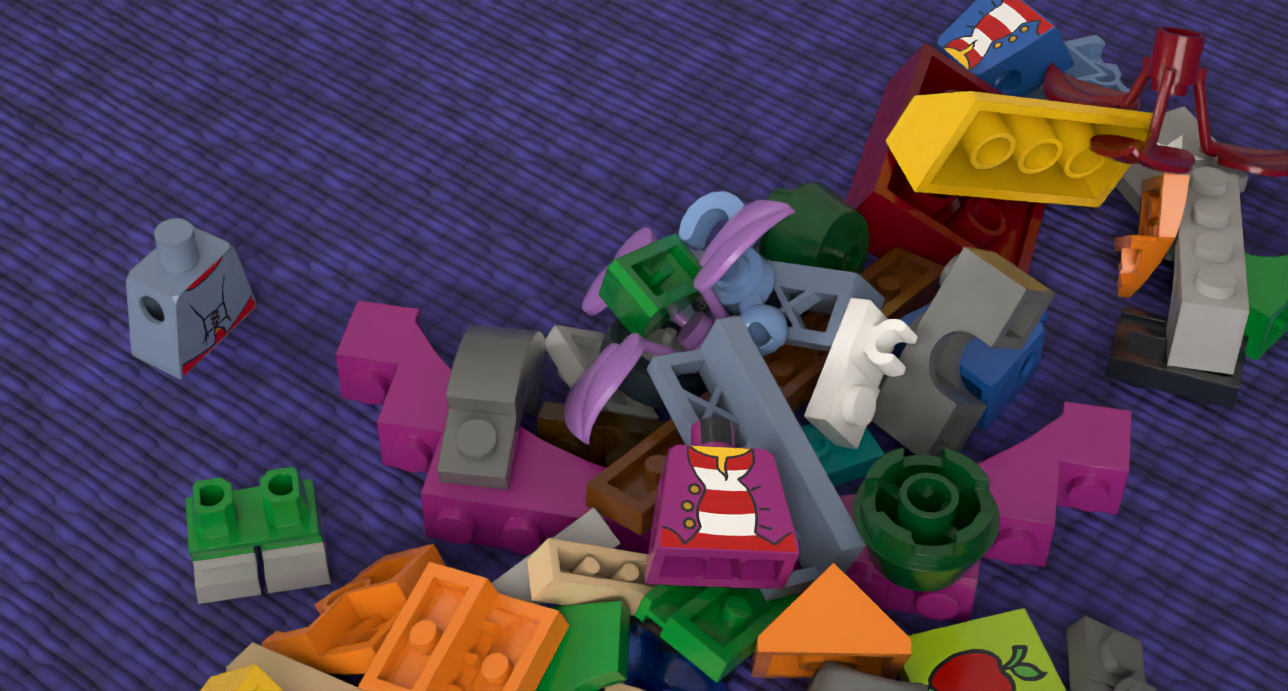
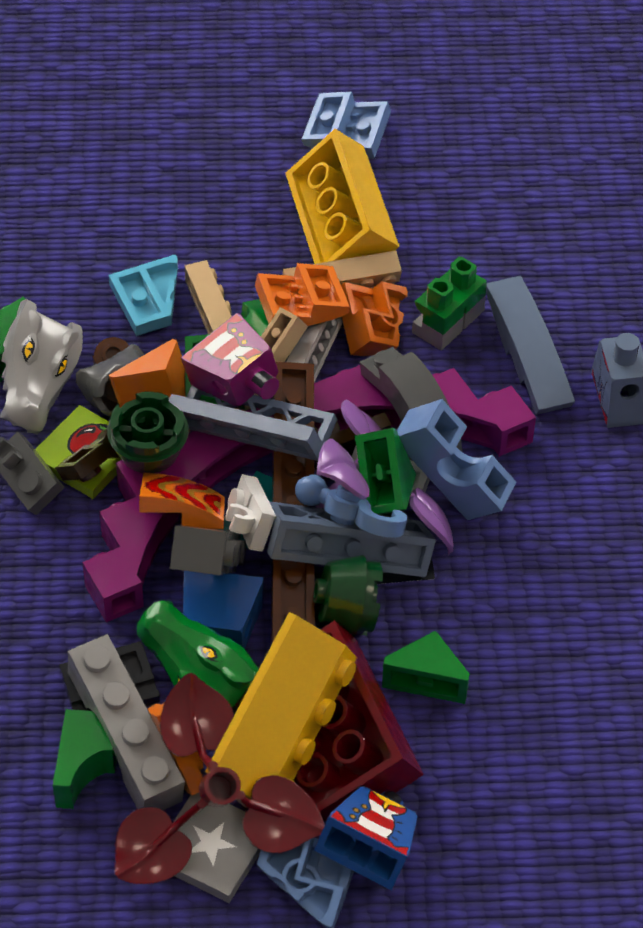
camera: 140 degrees right, 5 degrees up
(220, 427) = (529, 344): none -> sand blue slope
(539, 280) = (469, 483): none -> medium blue arch
(785, 157) = (427, 670): none -> green slope
(947, 405) = (172, 494): none -> orange slope
(1016, 619) = (86, 461): none -> dark brown plate
(1062, 262) = (193, 648): none -> green animal

